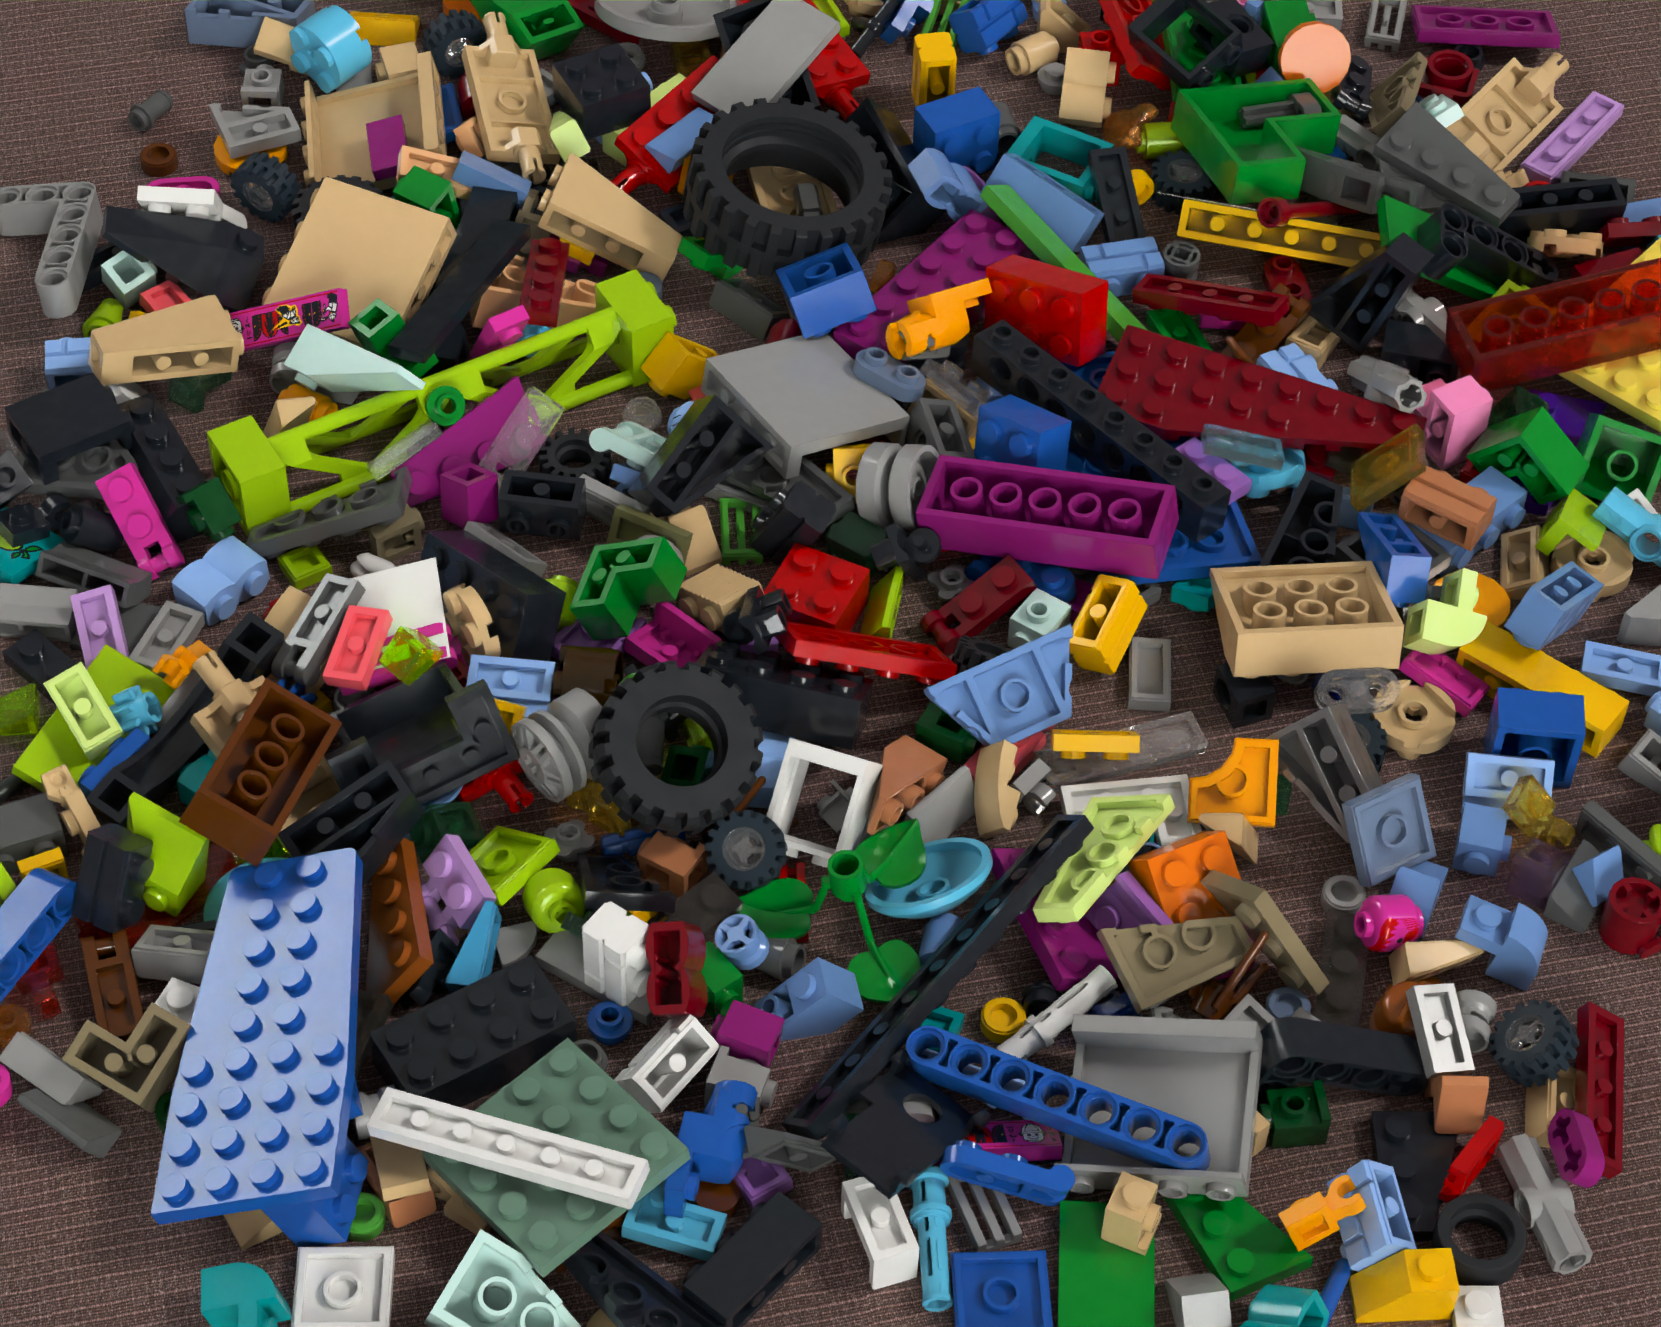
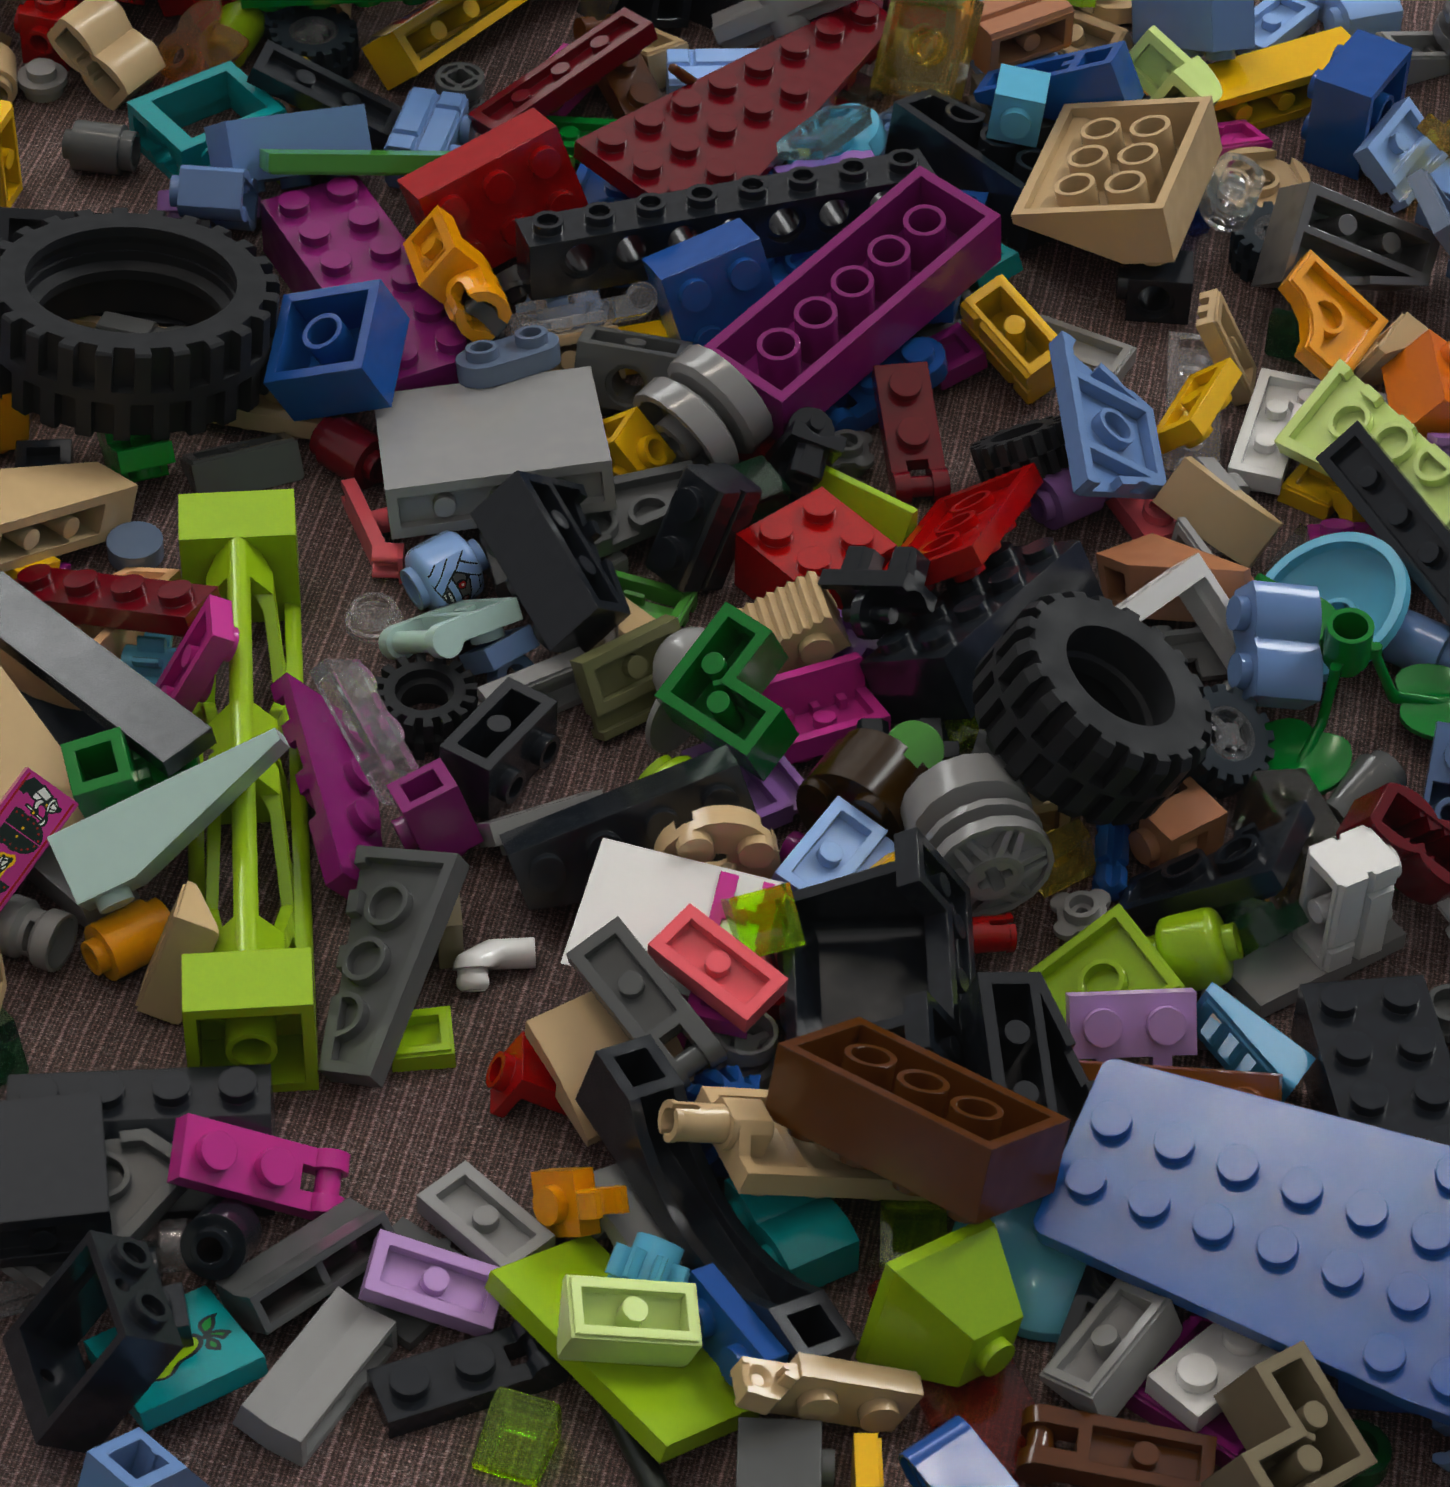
camera: 65 degrees left, 5 degrees down
(113, 878) = (977, 1362): black brick -> none
(210, 509) = (316, 1074): dark green brick -> none
(221, 580) = (409, 1125): light blue brick -> none
(403, 449) = (316, 844): clear tile -> none
(434, 401) = (294, 767): green plate -> none
(609, 1032) = (1394, 962): blue plate -> none
(676, 366) = (328, 551): yellow slope -> none
(738, 930) = (1354, 778): medium blue wheel -> none
(843, 826) = (1276, 644): none -> medium blue brick
(944, 734) = (1093, 520): dark green brick -> none
(961, 128) = (115, 158): blue brick -> none
(1037, 617) = (968, 400): light aqua brick -> none
(1174, 710) = (1224, 340): none -> tan tile
(1289, 273) = (530, 36): dark red plate -> none
(1339, 533) = (1018, 105): none -> medium azure brick

